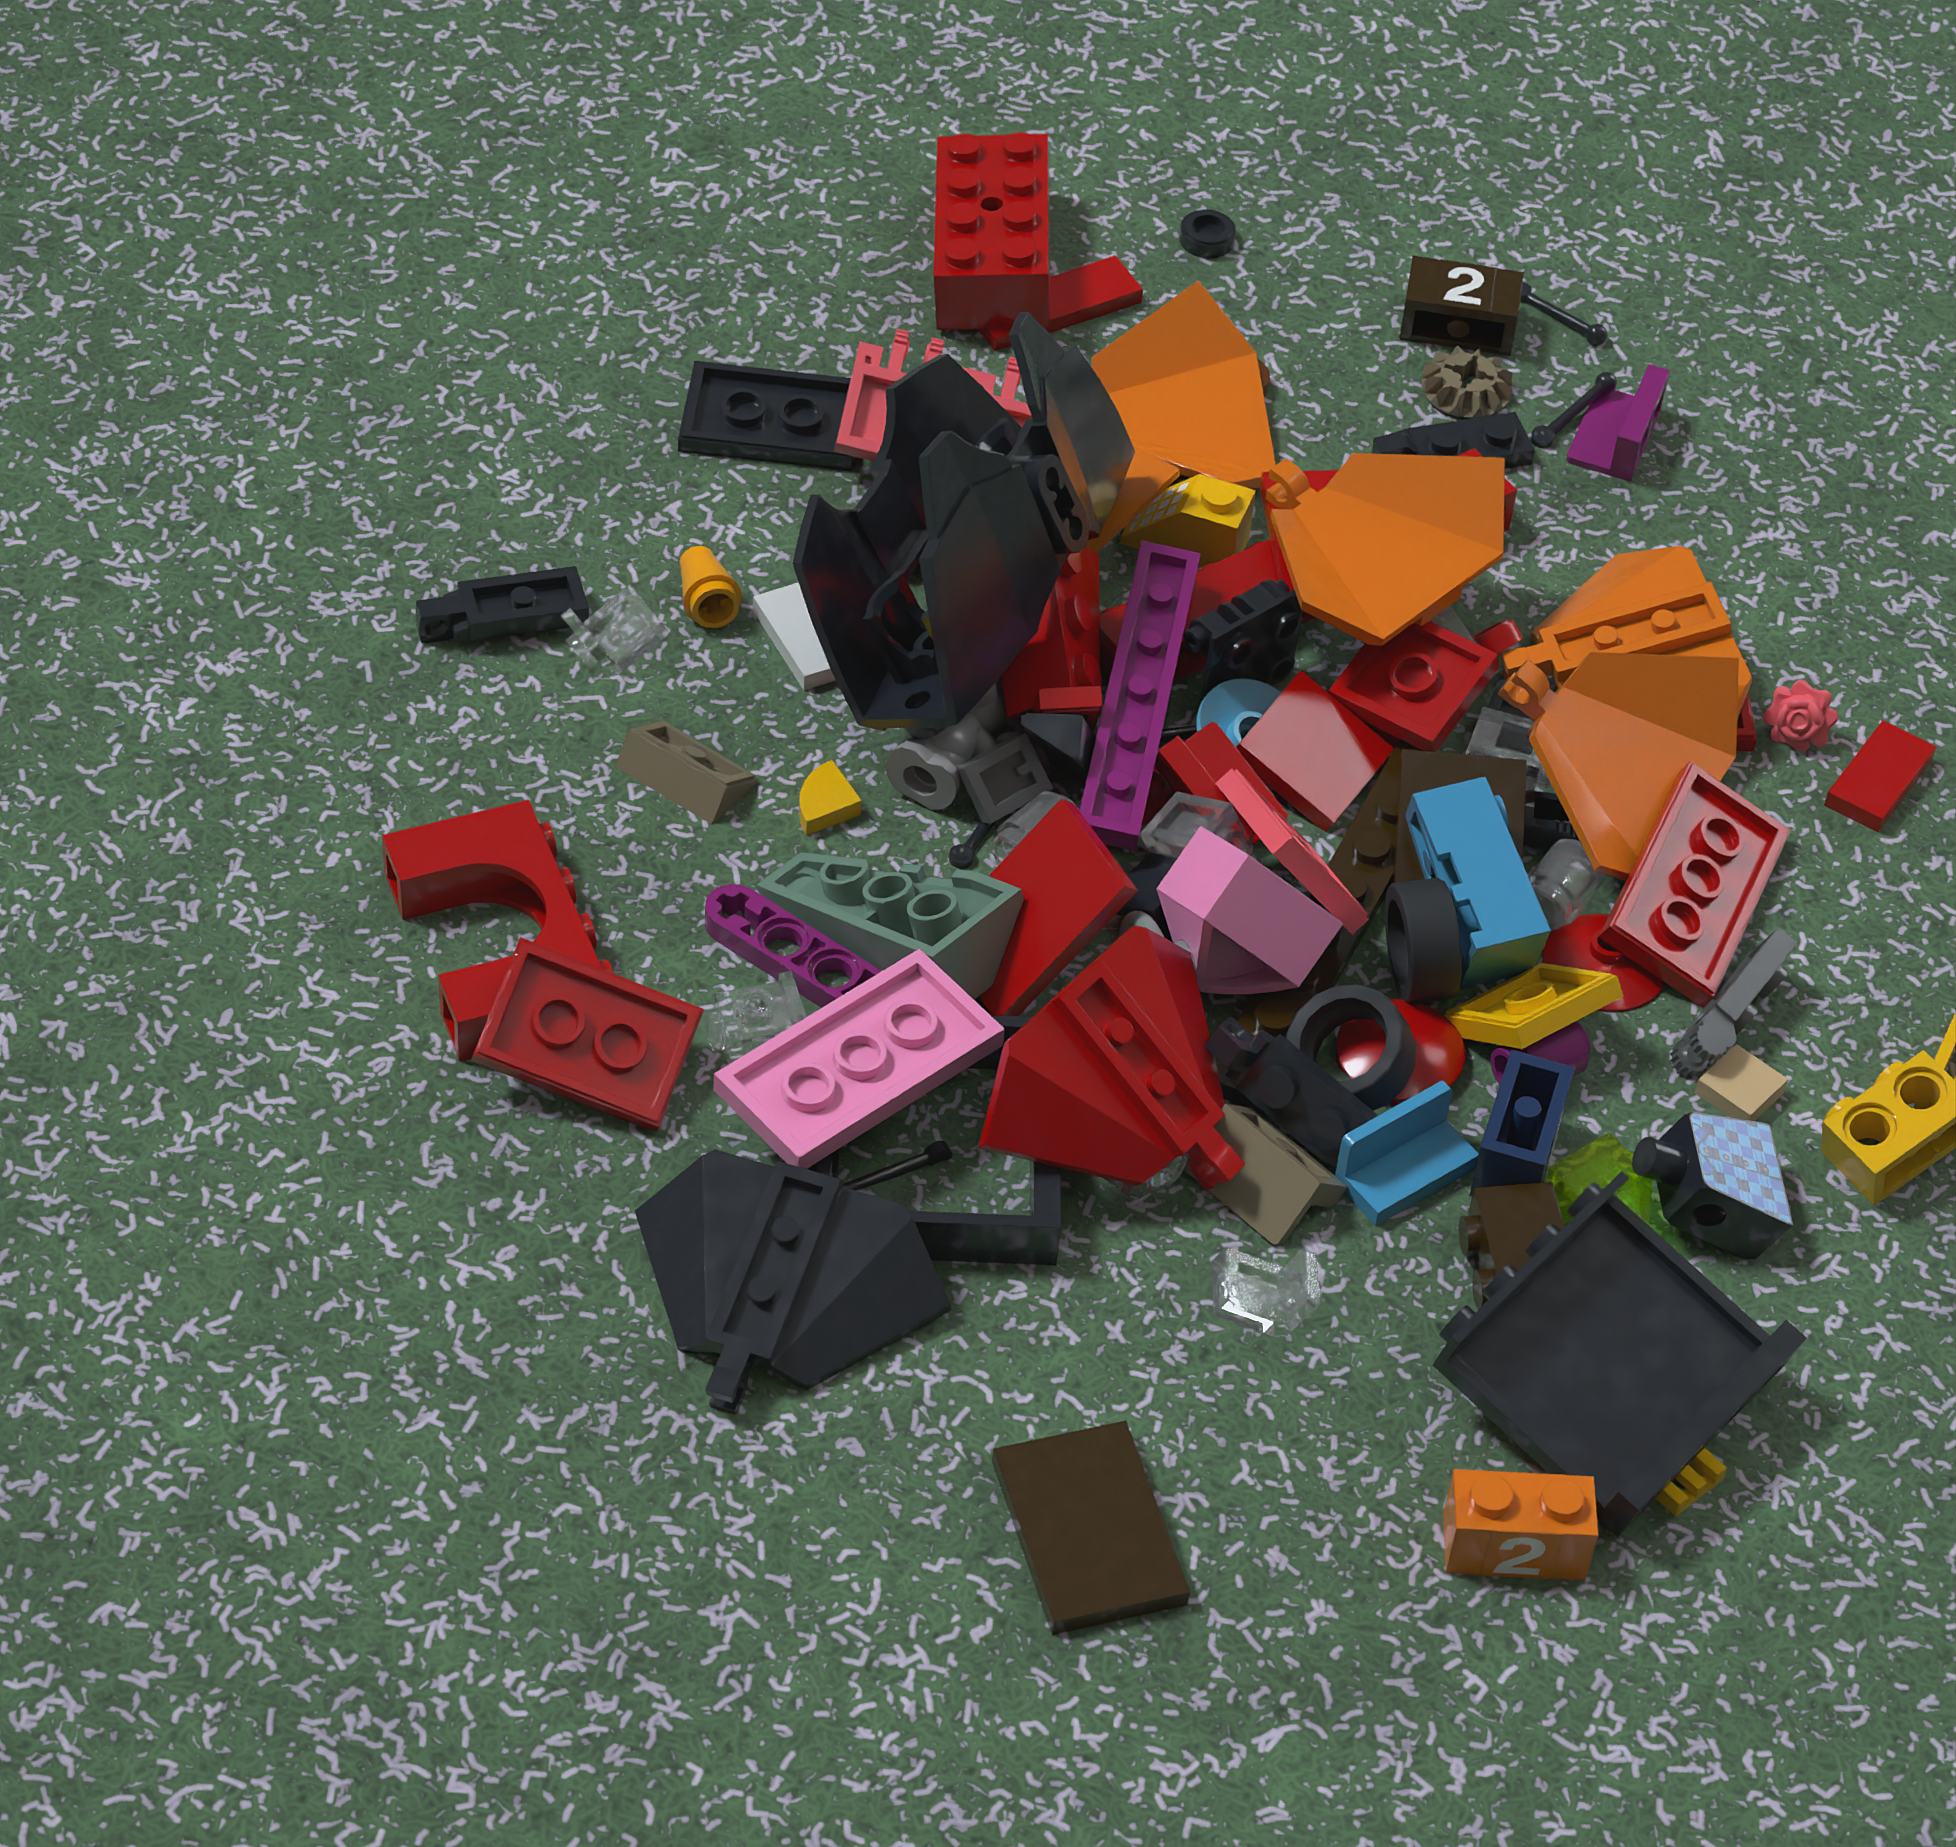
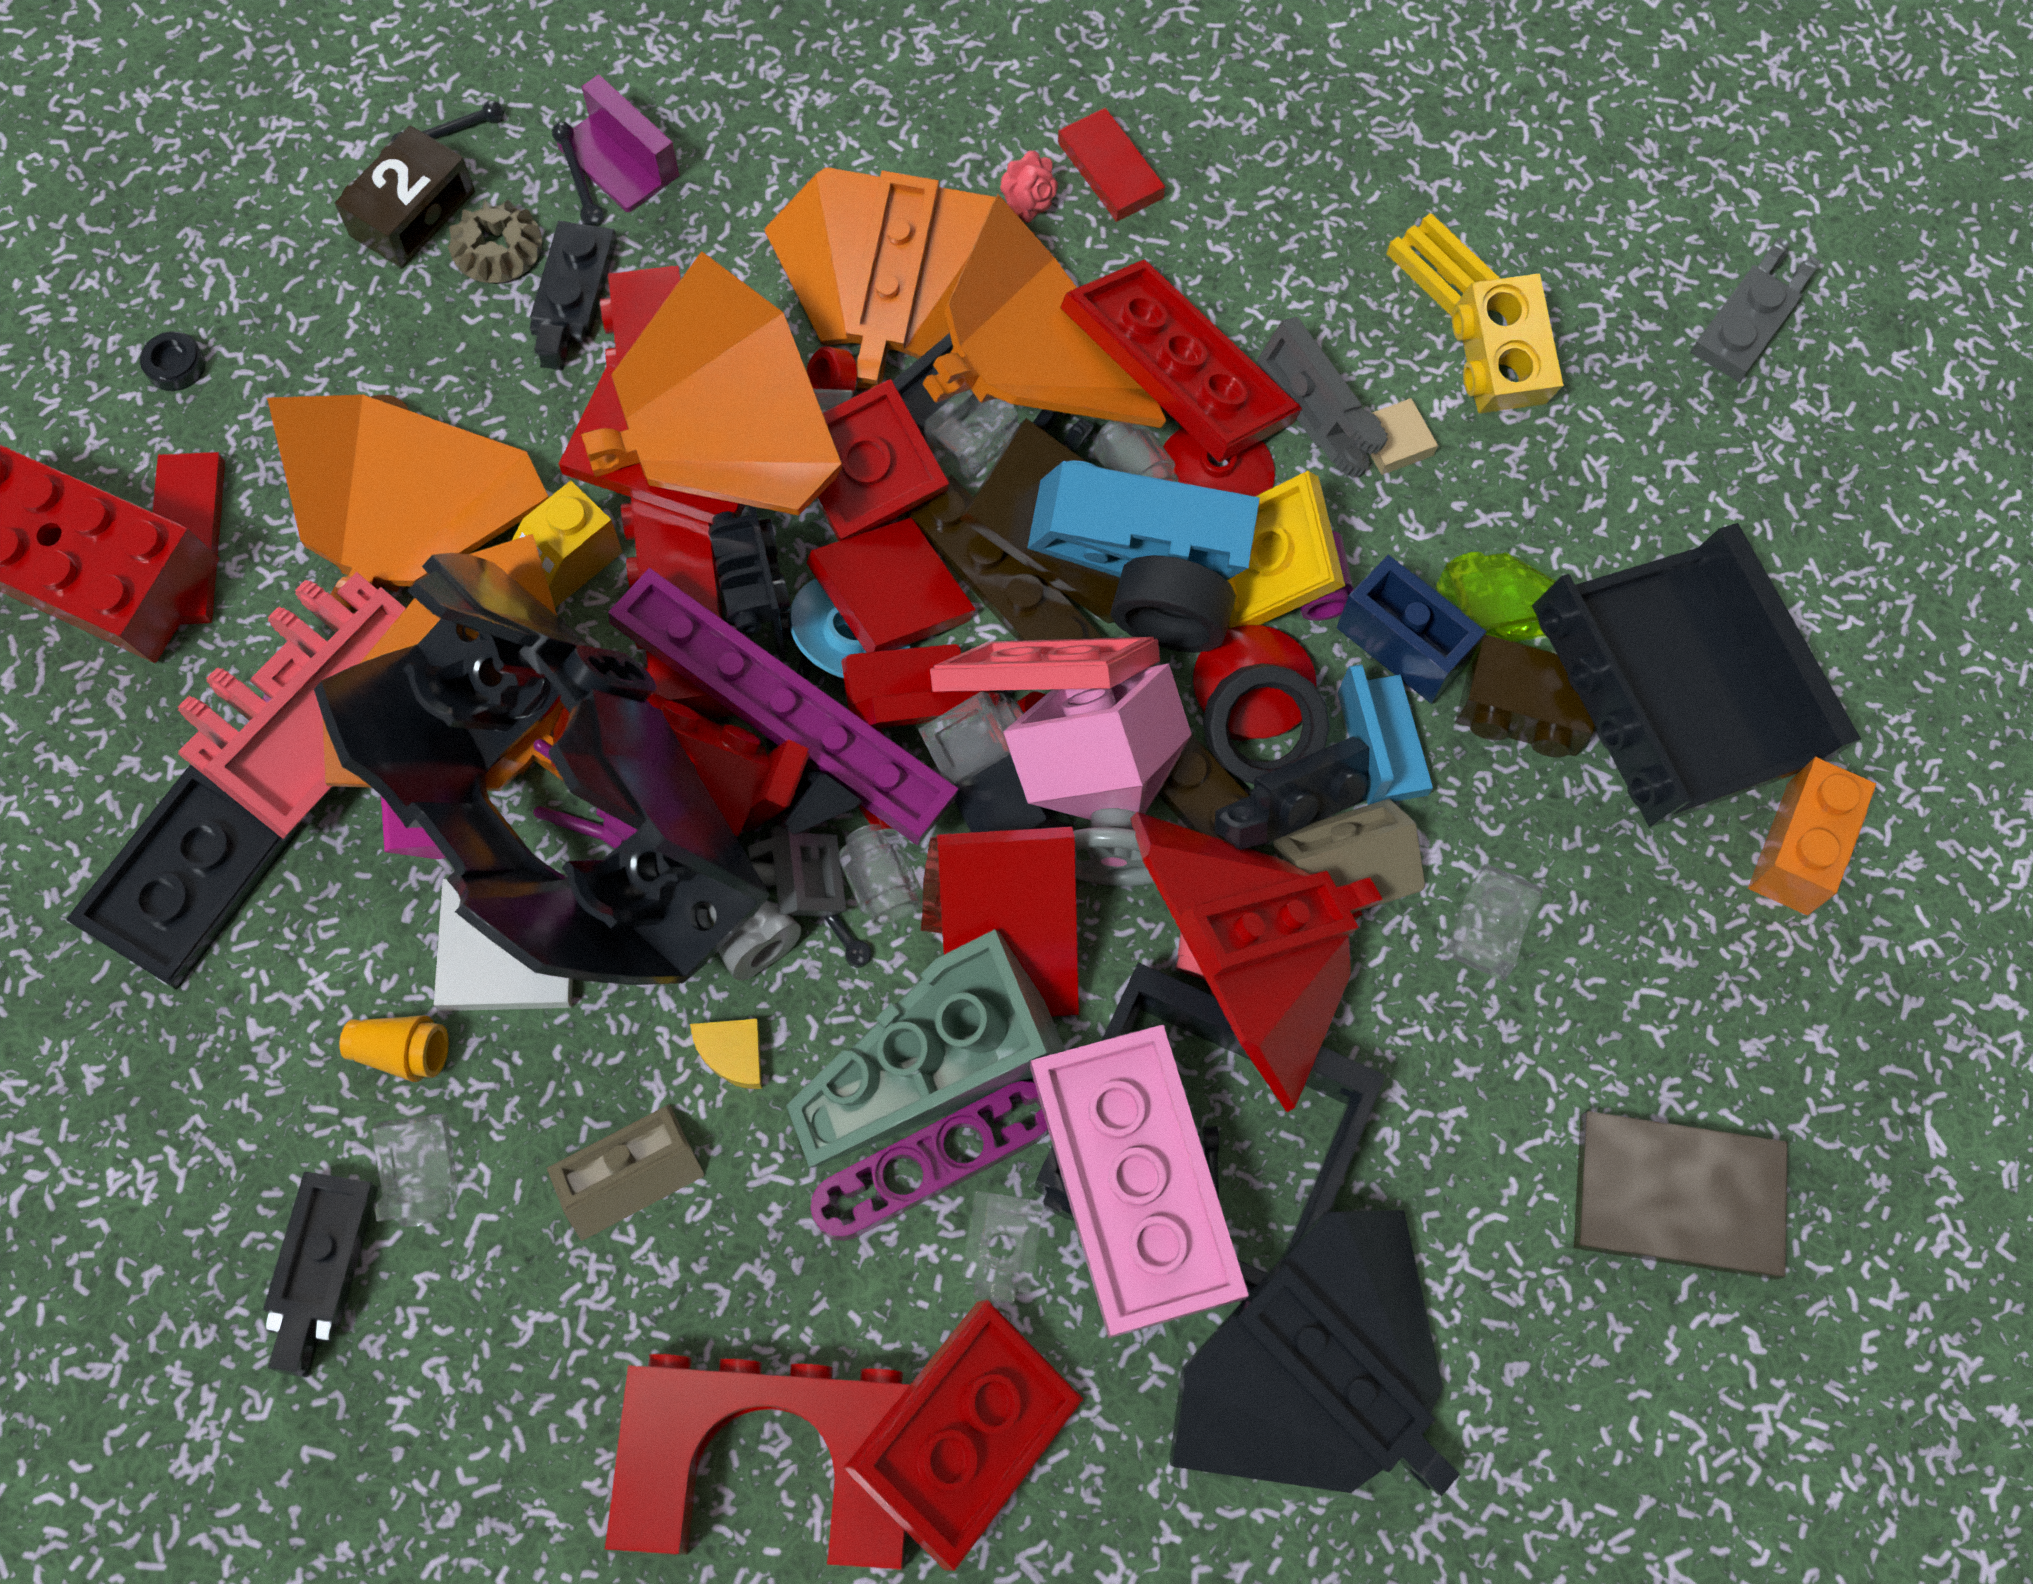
camera: 65 degrees left, 20 degrees up
(1718, 1181) = (1516, 502): black torso -> none

